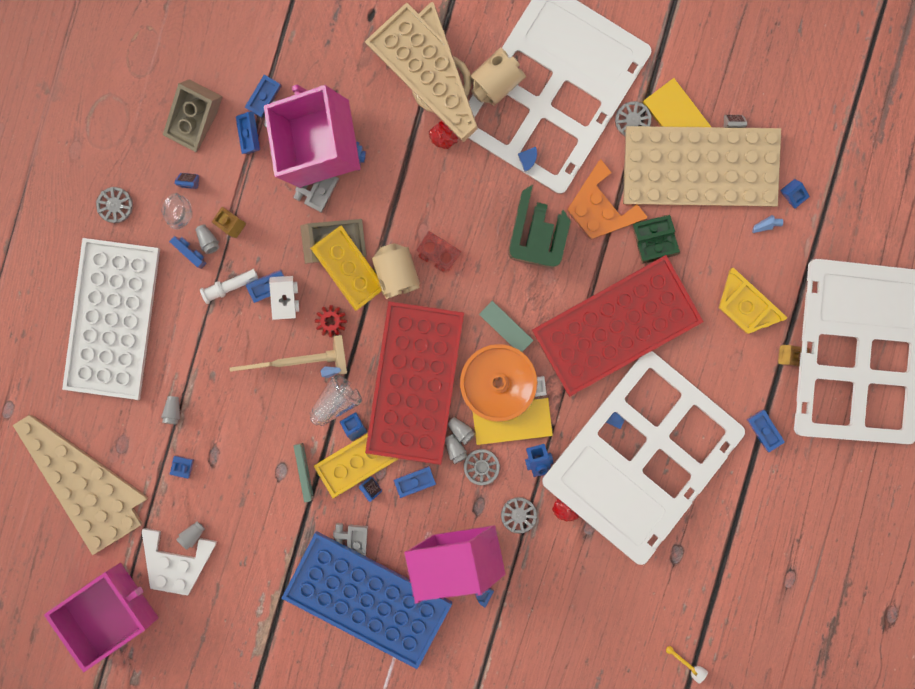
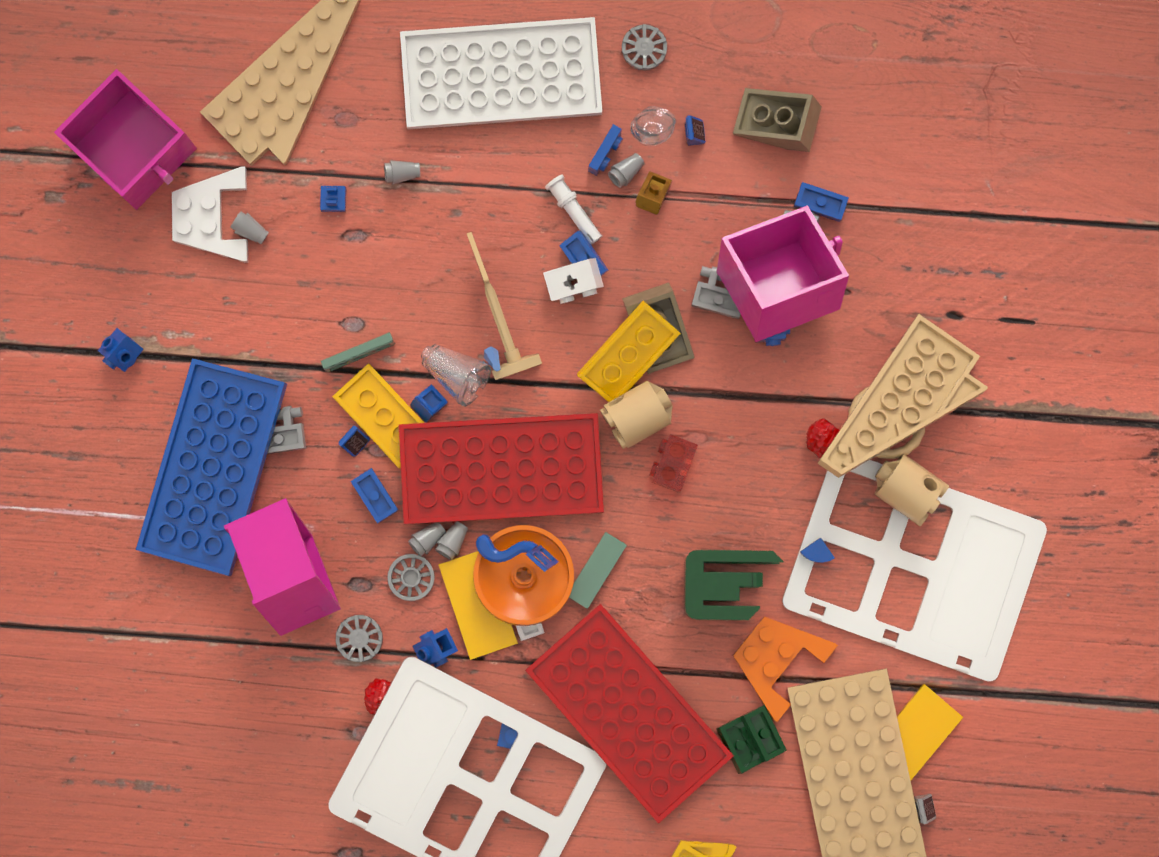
camera: 75 degrees right, 5 degrees down
(247, 133) = (770, 192): blue plate -> none
(263, 652) = (119, 350): none -> blue brick
(330, 314) = (548, 349): red gear -> none
(475, 405) = (489, 552): none -> blue piece
(485, 597) = (247, 615): blue tile -> none
(632, 118) = (898, 675): light grey wheel -> none

